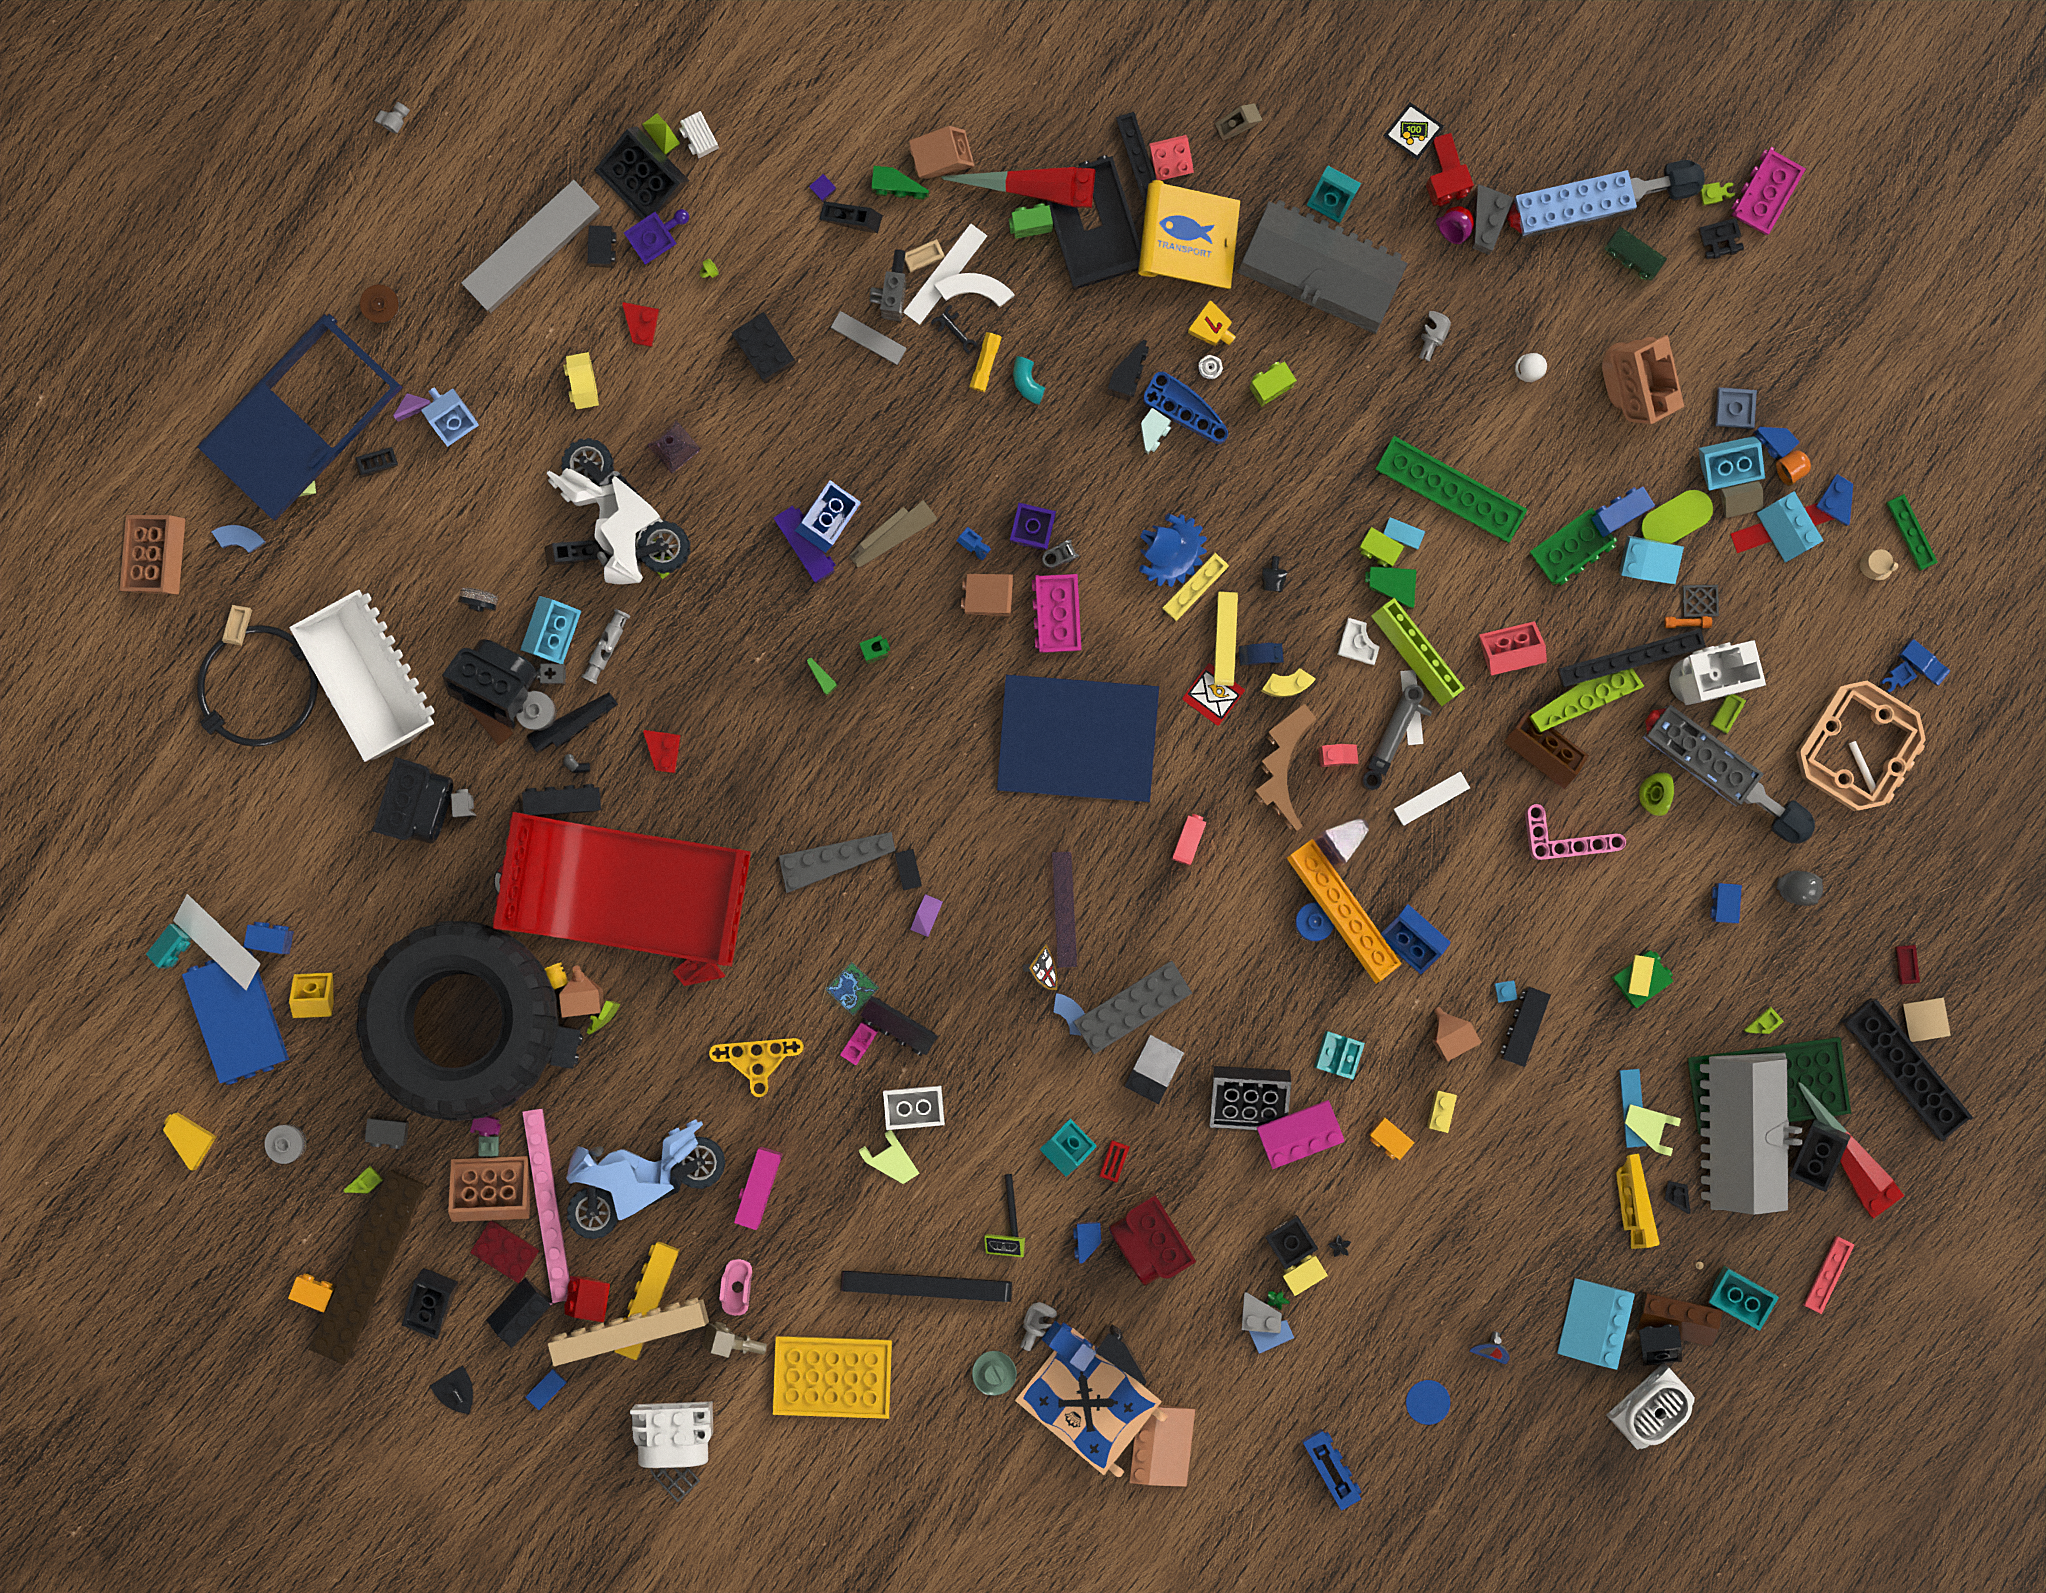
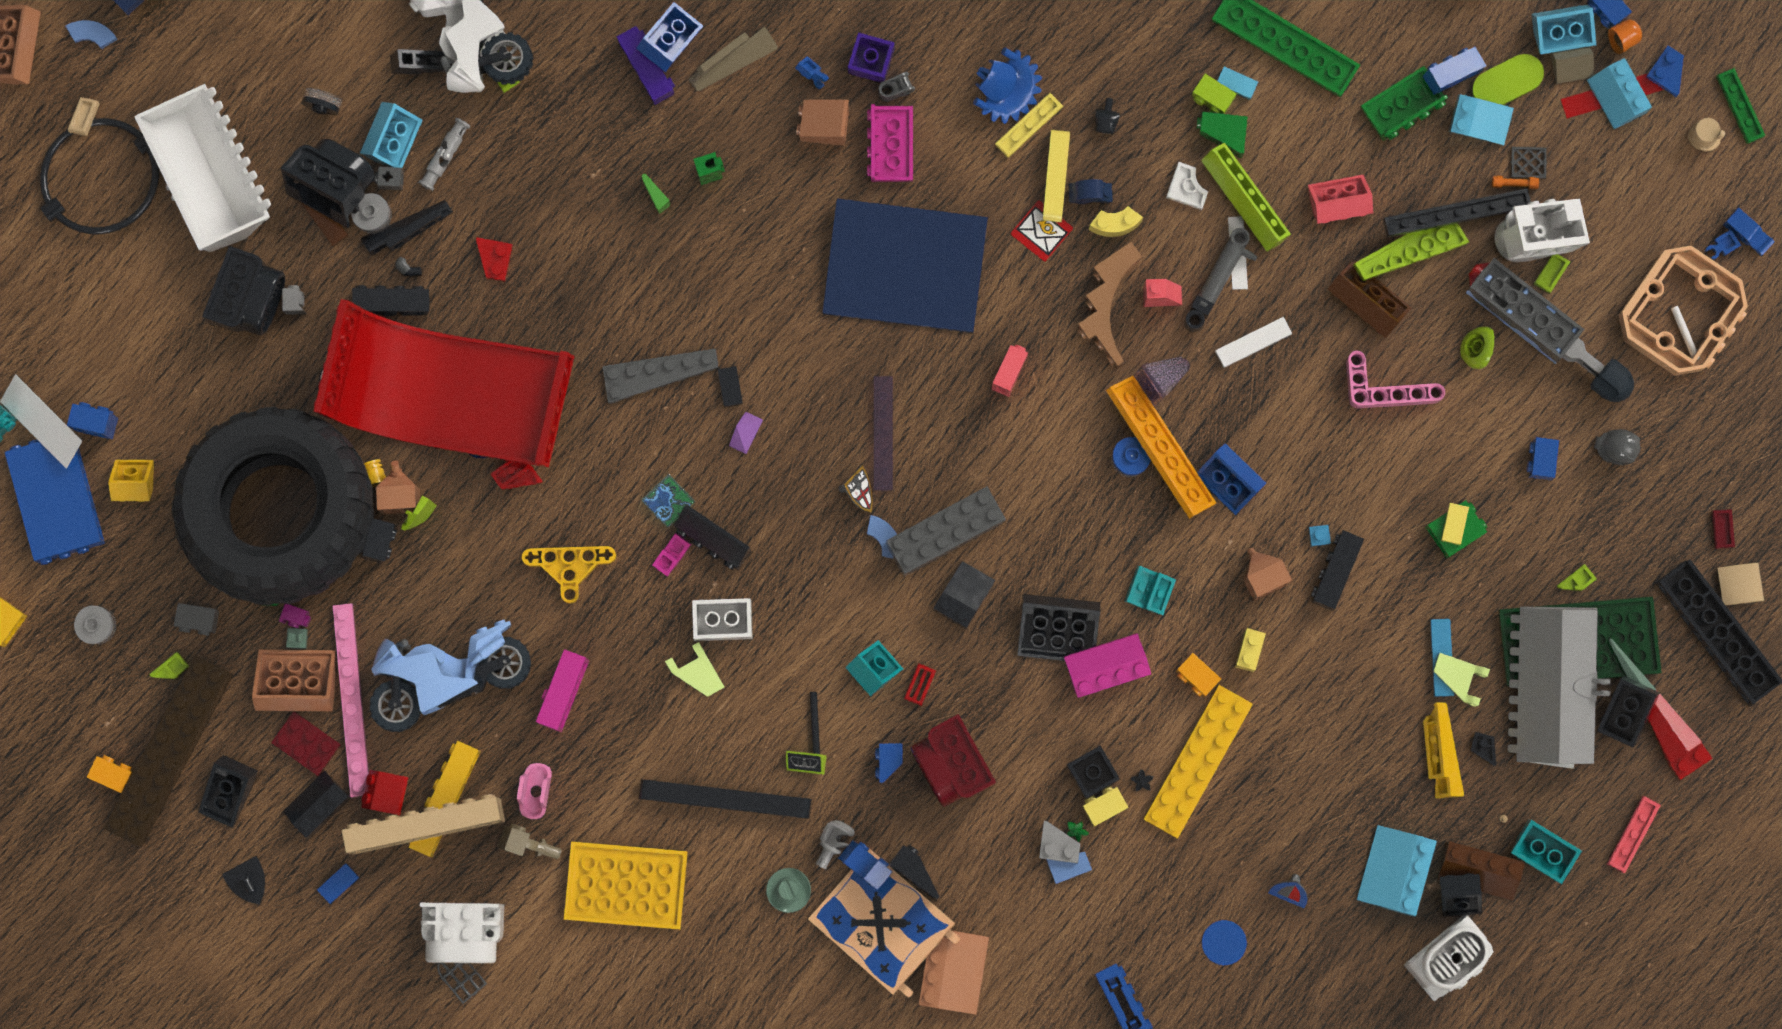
camera: 10 degrees right, 5 degrees down
(1394, 1224) = (1198, 761): none -> yellow plate

